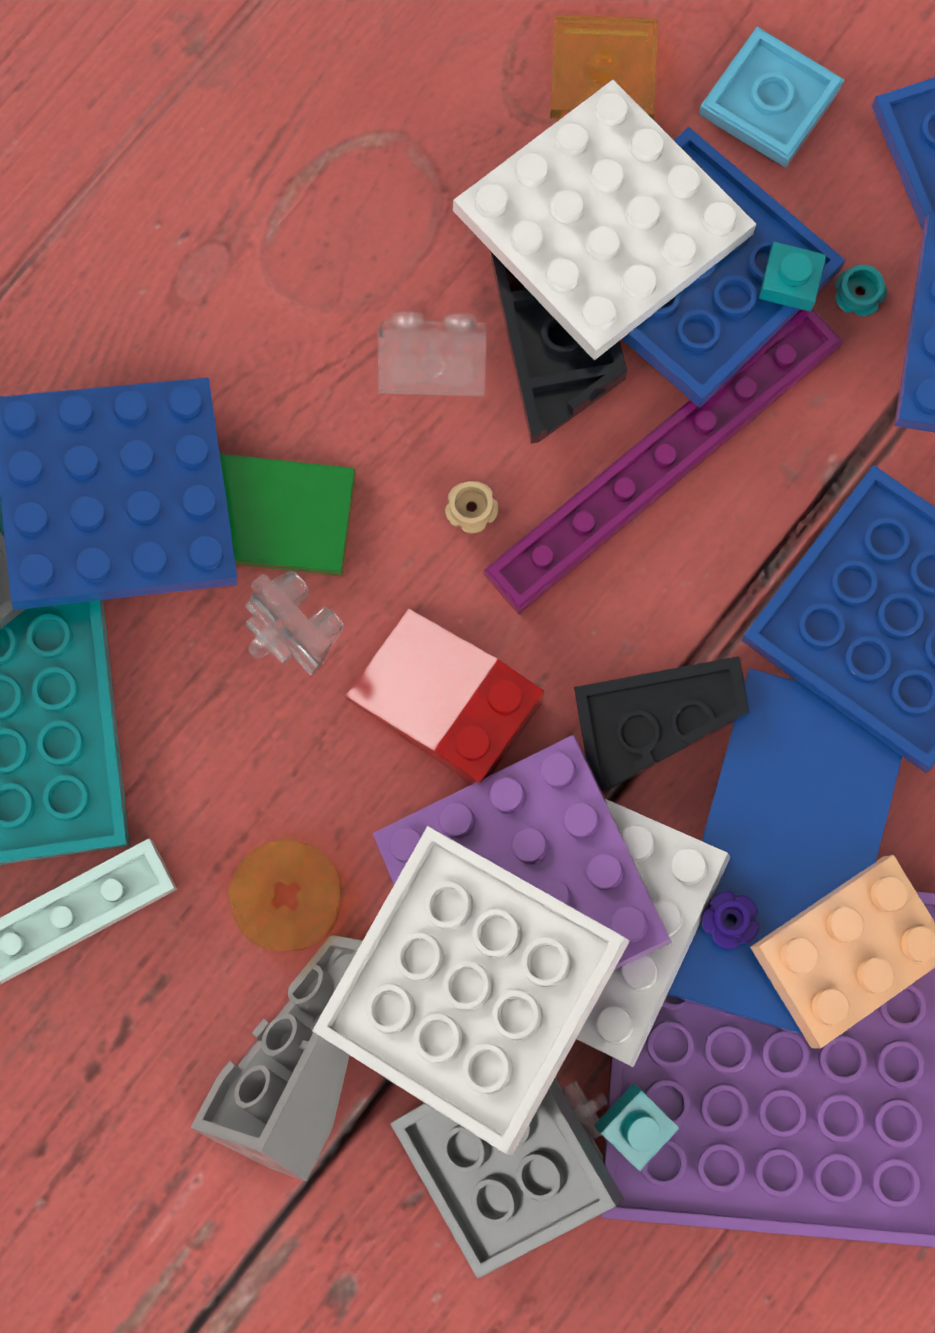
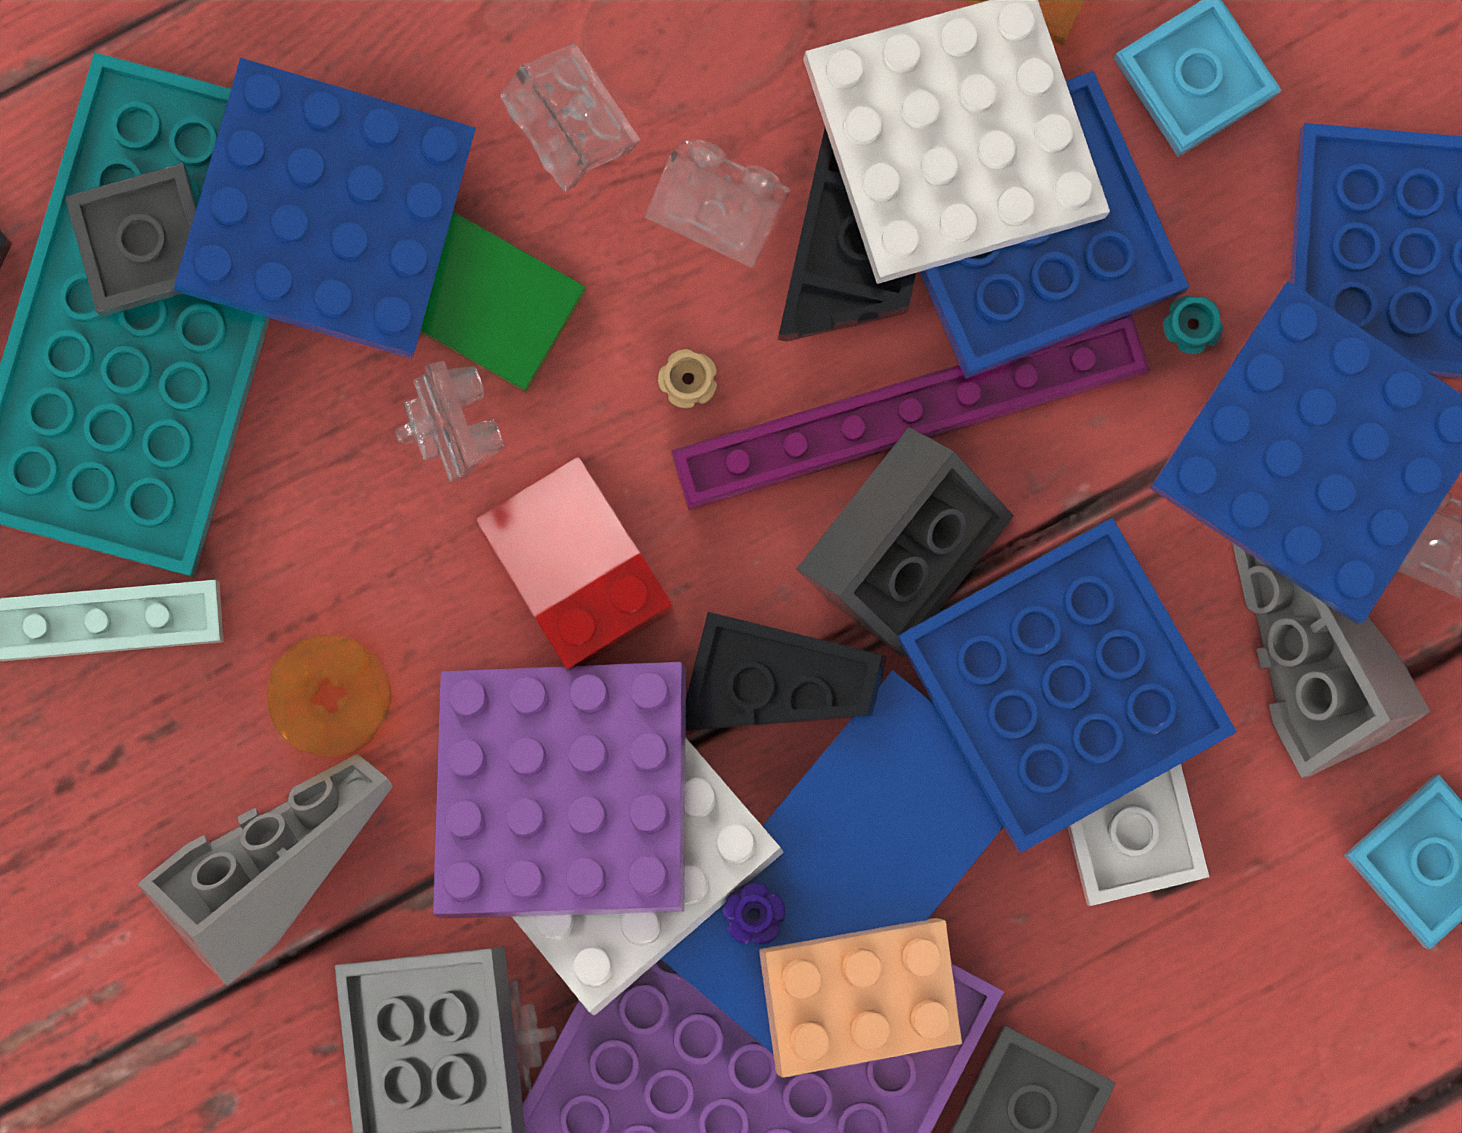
camera: 15 degrees right, 5 degrees up
(279, 339) = (567, 115): none -> clear bracket
(470, 989) = (464, 869): white plate -> none
(636, 1127) = (571, 1074): teal plate -> none
(709, 558) = (906, 539): none -> dark grey slope
(792, 276) = (1122, 282): teal plate -> none

